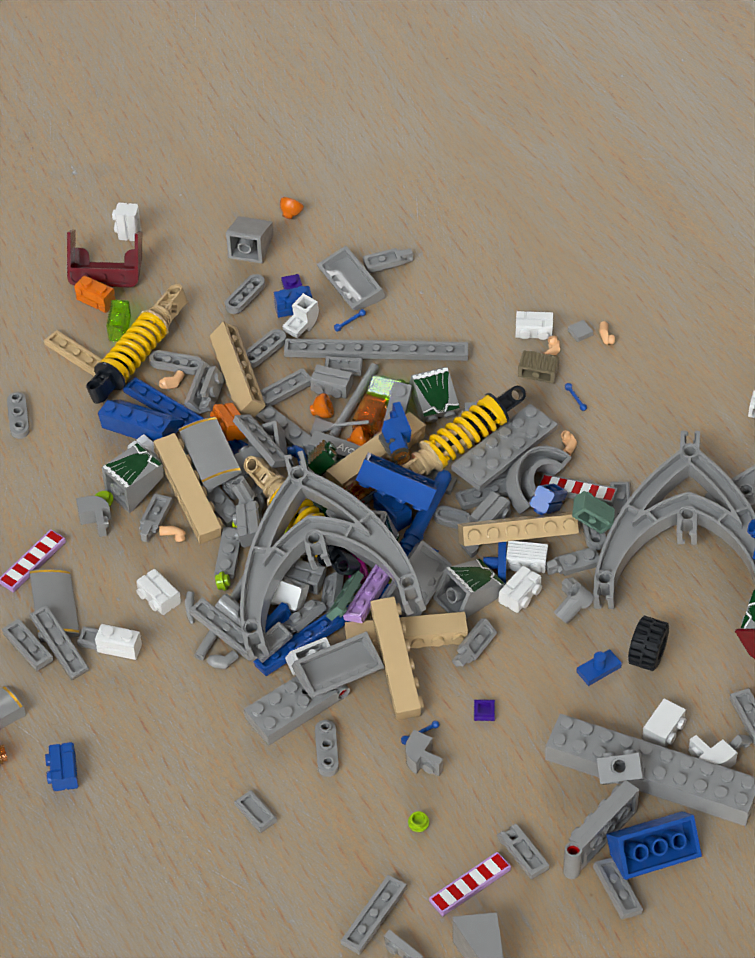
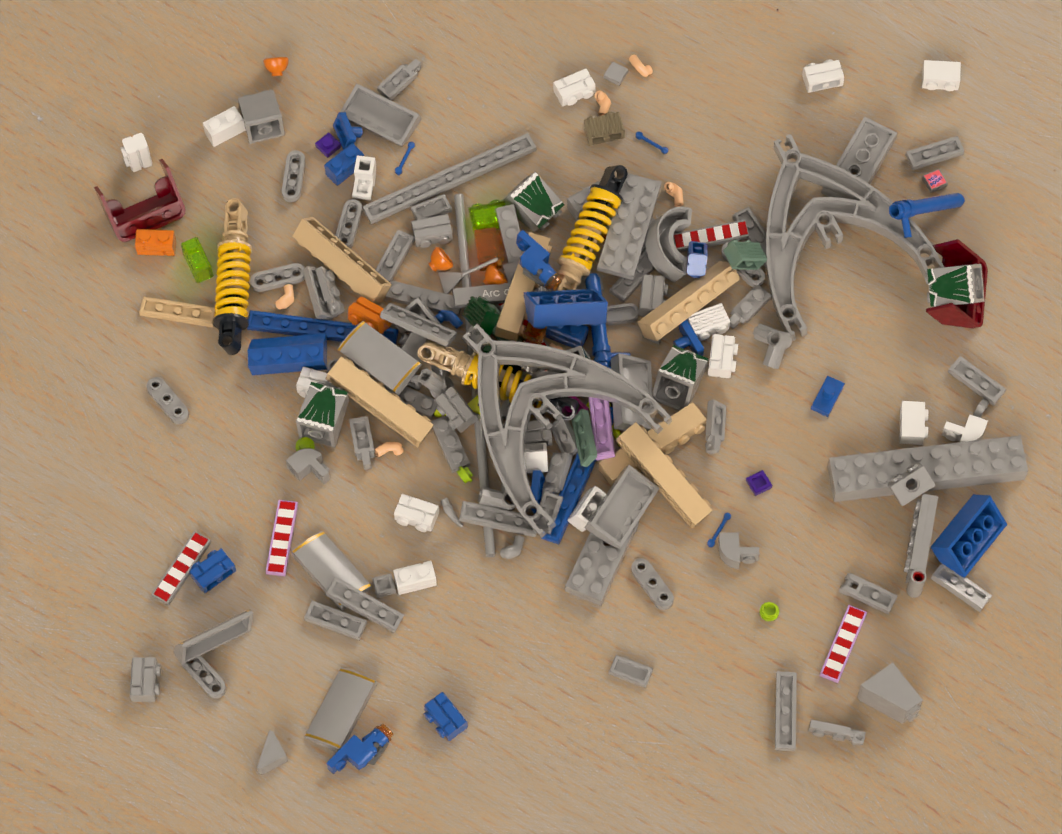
camera: 30 degrees left, 15 degrees up
(212, 233) = (224, 126): none -> white brick
(312, 278) = (344, 130): none -> blue tile
(648, 643) = (861, 356): black tyre -> none

